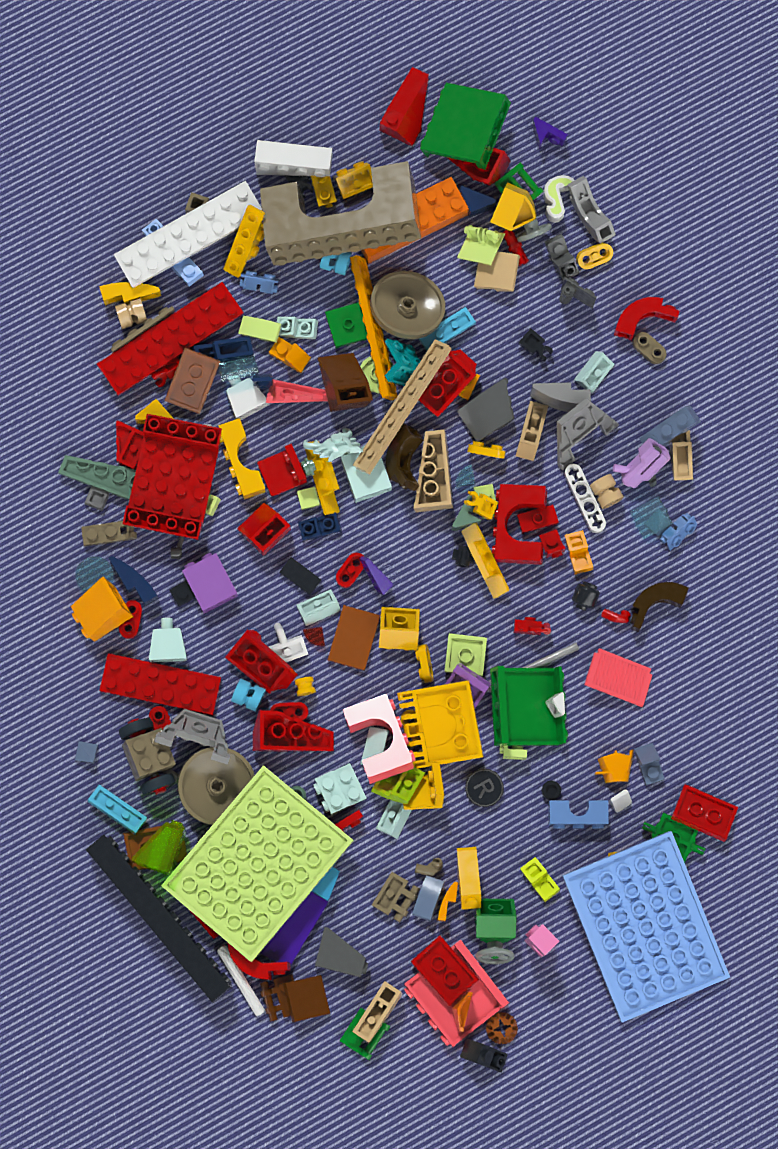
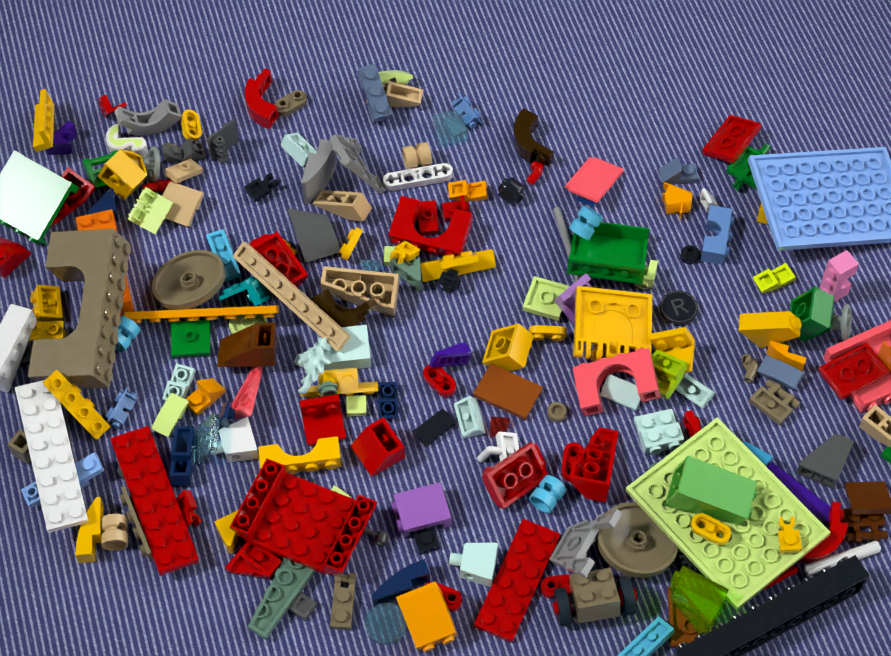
camera: 70 degrees left, 20 degrees down
(192, 380) = (205, 485): dark orange tile -> none
(230, 849) = (711, 529): none -> yellow plate
(235, 923) = (788, 539): none -> yellow plate
(265, 844) = (711, 491): none -> bright green slope
(305, 686) = (548, 442): yellow wheel -> none
(341, 688) = (556, 412): none -> dark tan tile
(531, 626) = (530, 240): red piece -> none
(535, 263) = (183, 171): none -> tan plate
(552, 676) = (586, 222): none -> medium azure wheel
(556, 704) = (611, 228): white slope -> none
(559, 110) = (43, 122): none -> yellow fence
(591, 171) = (106, 107): none -> red panel
(645, 465) = (402, 119): lavender piece -> none
(706, 450) = (398, 76): none -> yellowish green slope

